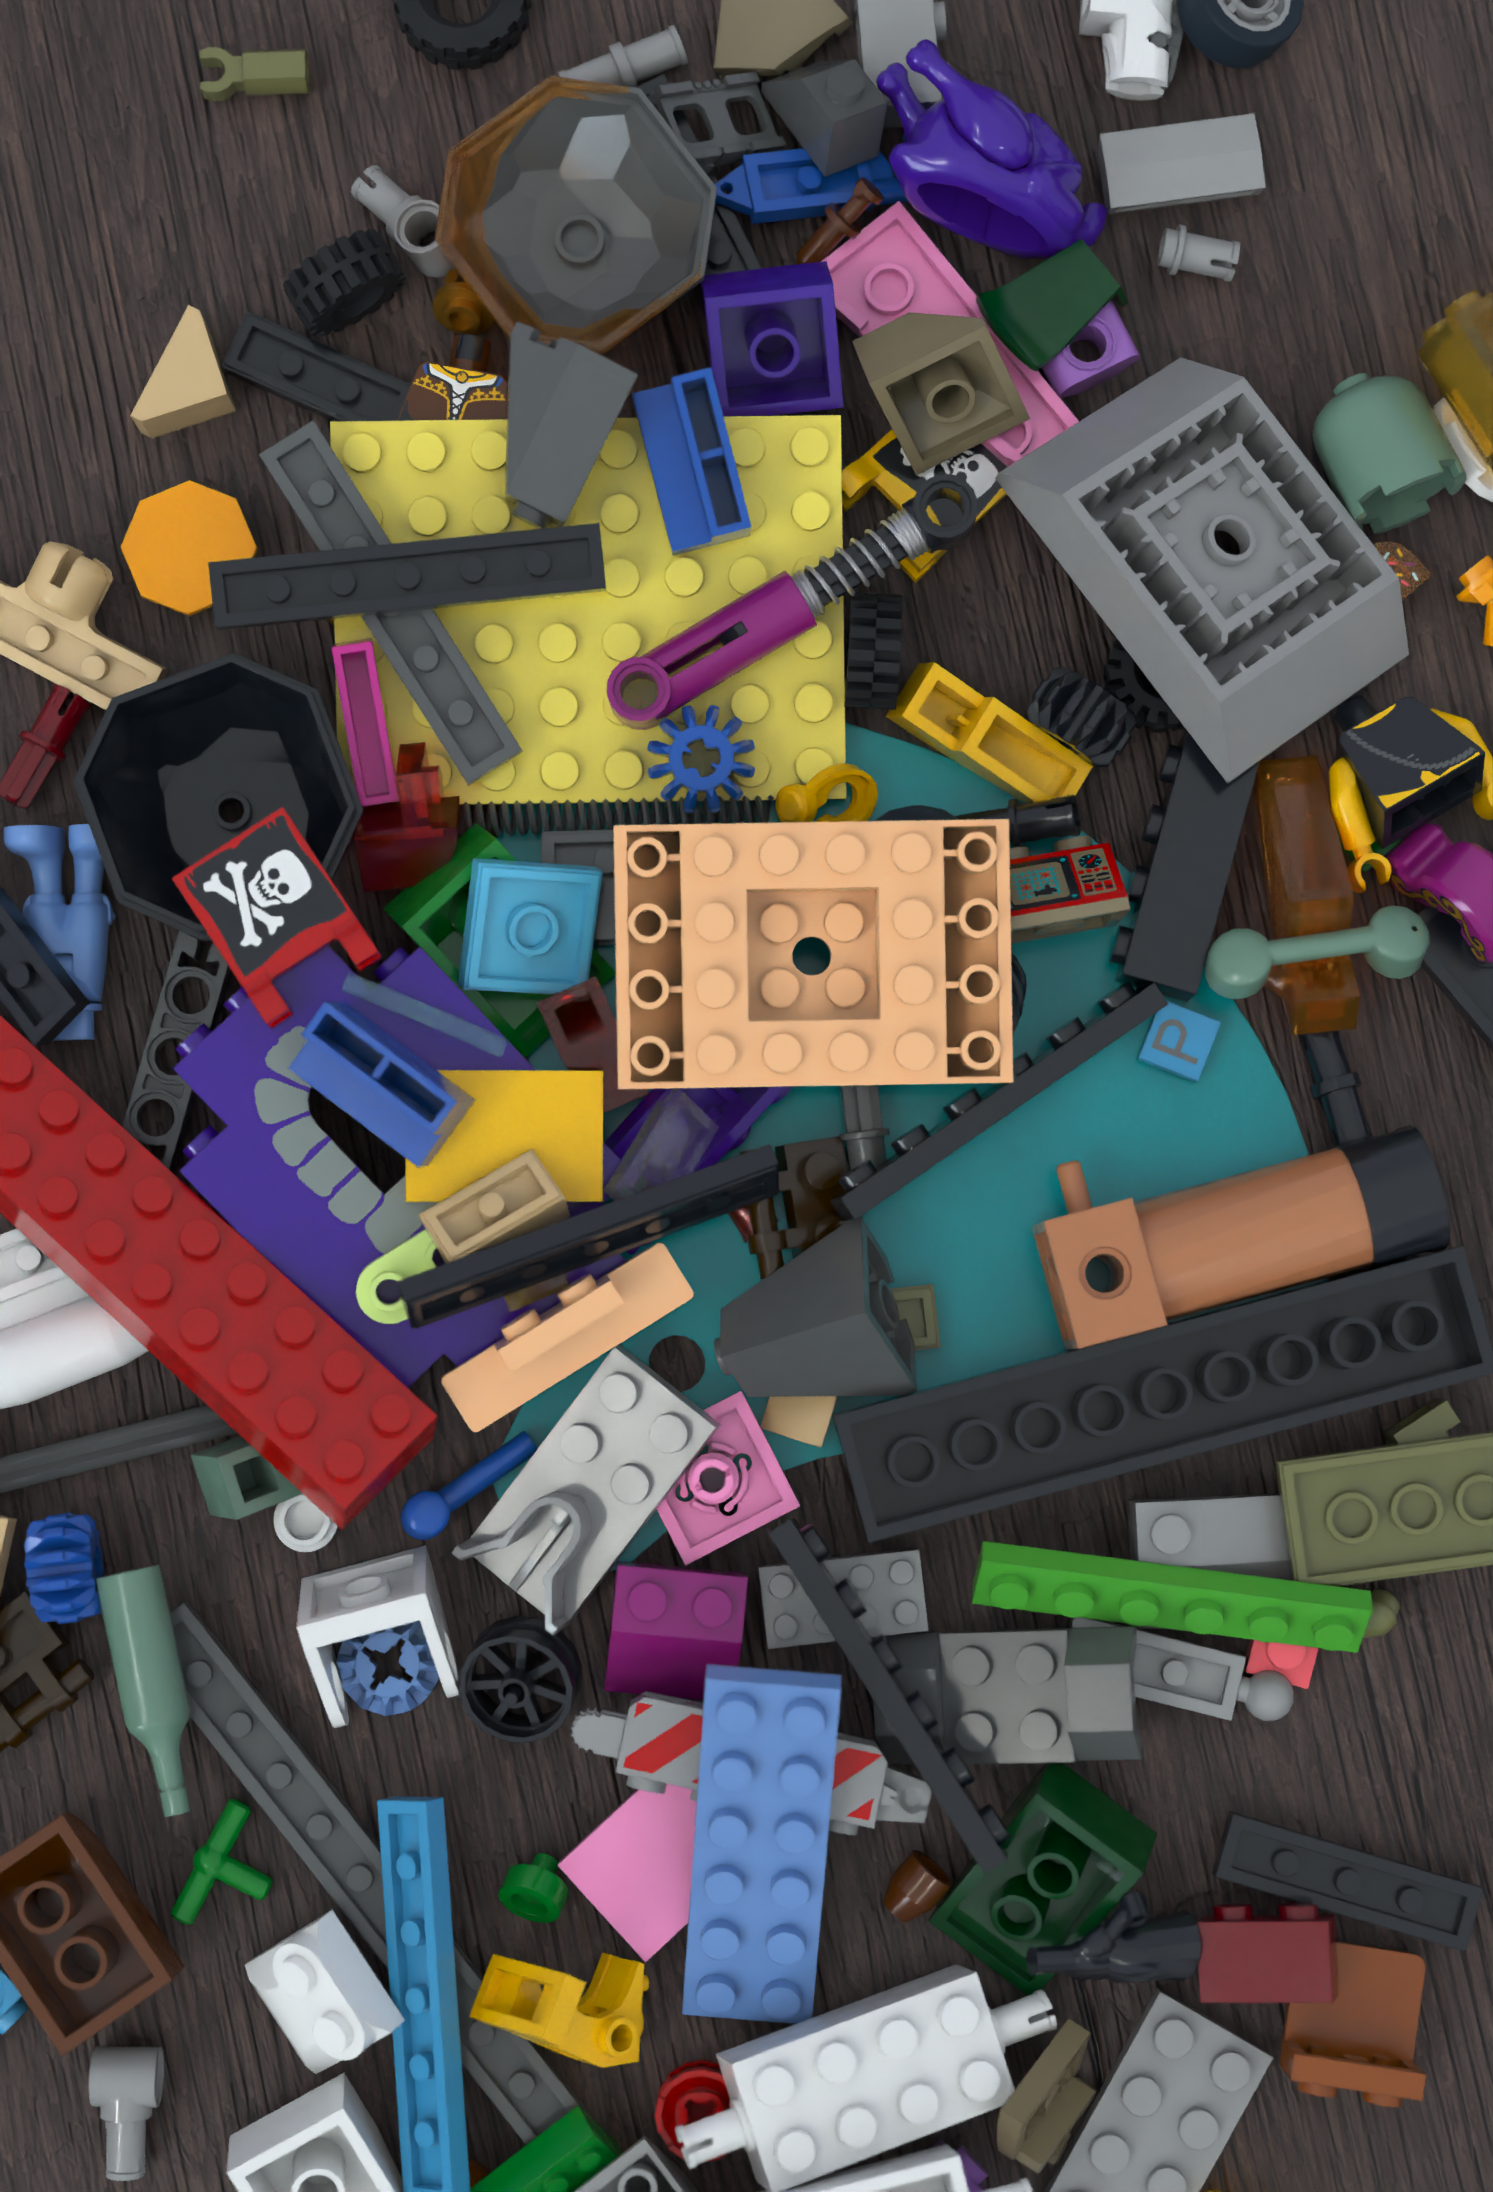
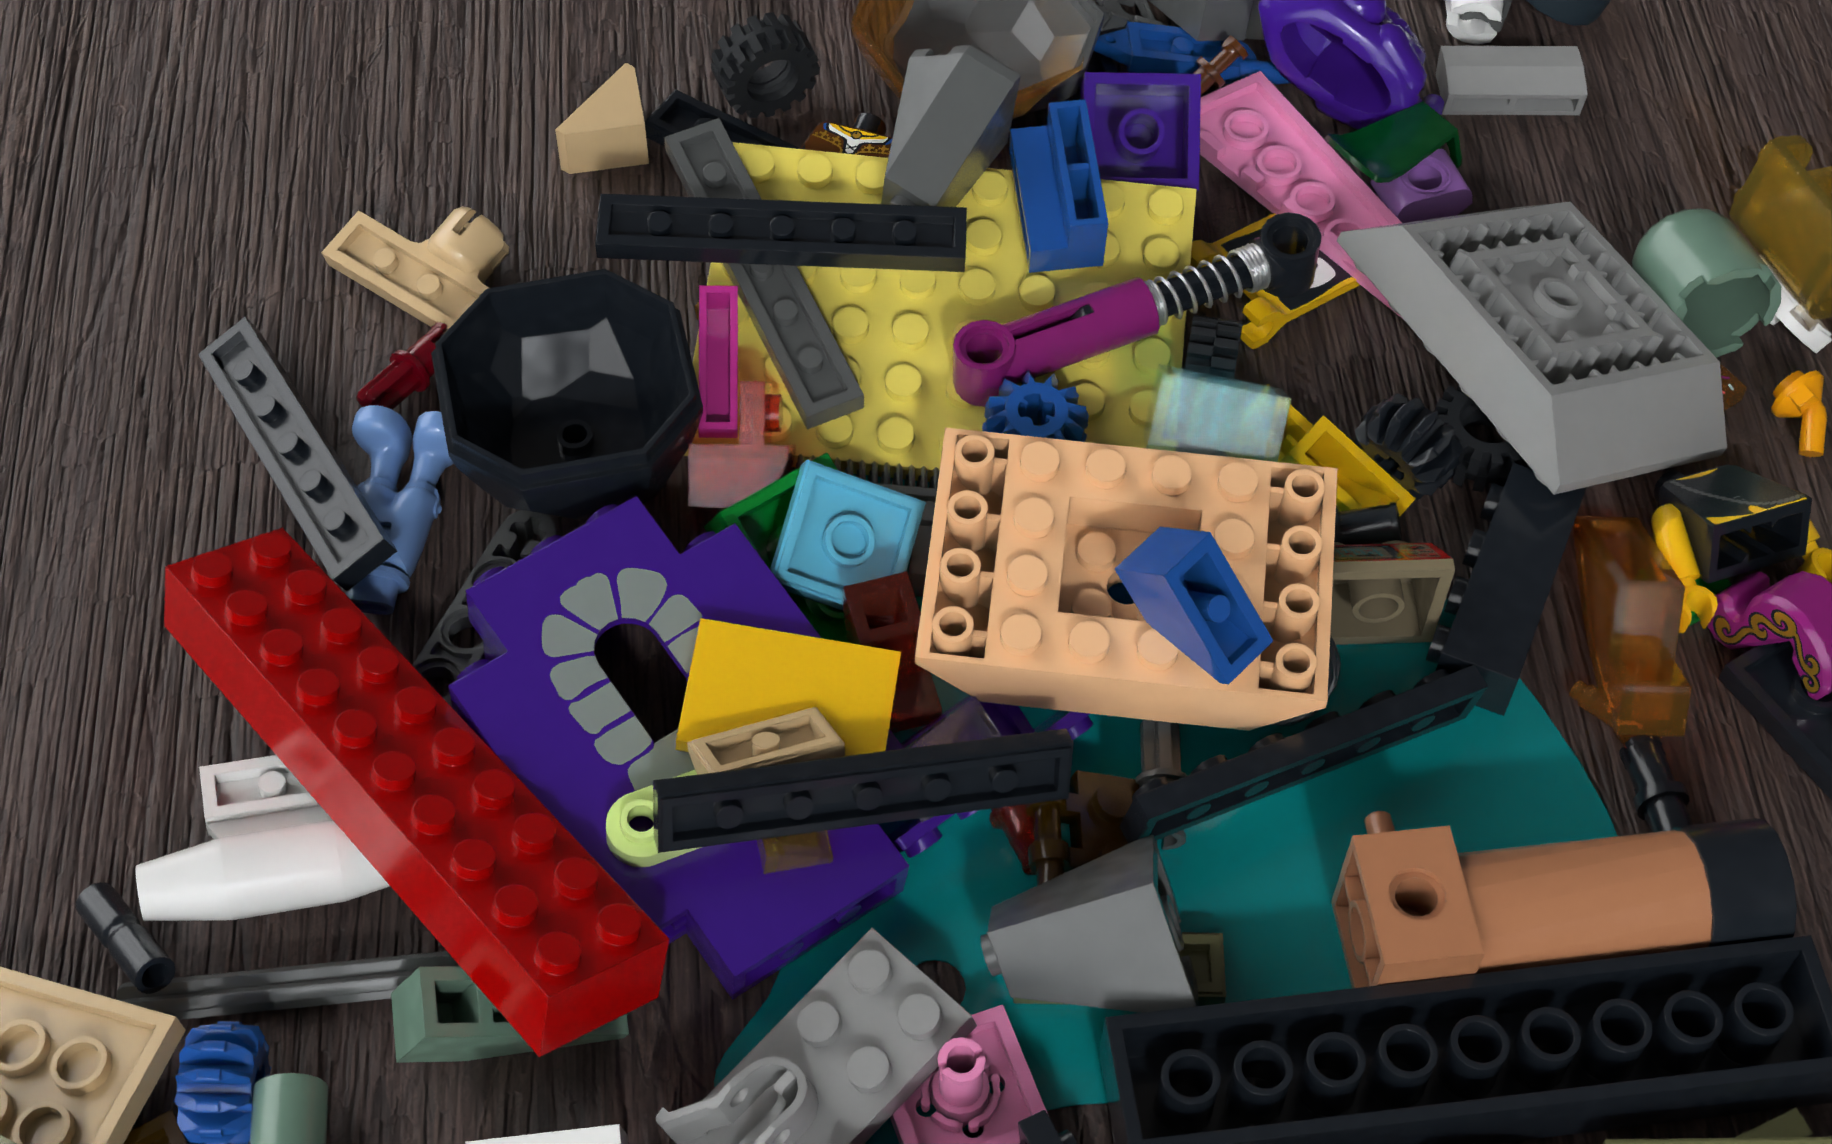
camera: 10 degrees right, 30 degrees down
(175, 540) = (564, 235): light orange piece -> none
(270, 909) = (595, 460): flag -> none
(303, 1525) = (500, 1086): white plate -> none
(380, 1082) = (674, 610): blue piece -> none
(406, 219) = (835, 48): light grey pin -> none
(425, 1014) = (731, 581): clear light blue piece -> none
(429, 1511) = (640, 1075): blue piece -> none
(459, 308) = (866, 95): pearl gold plate -> none
(567, 1336) = (819, 896): light nougat bracket -> none
(799, 1417) = (1066, 1041): tan slope -> none
(878, 1018) = (1195, 600): none -> blue slope
(883, 749) = (1215, 415): none -> clear light blue brick
(939, 384) = (1293, 168): dark tan slope -> none
(1179, 1041) = (1495, 743): dark azure tile -> none
(1197, 254) = (1525, 139): light grey pin -> none
(1390, 943) = (1719, 653): sand green piece -> none

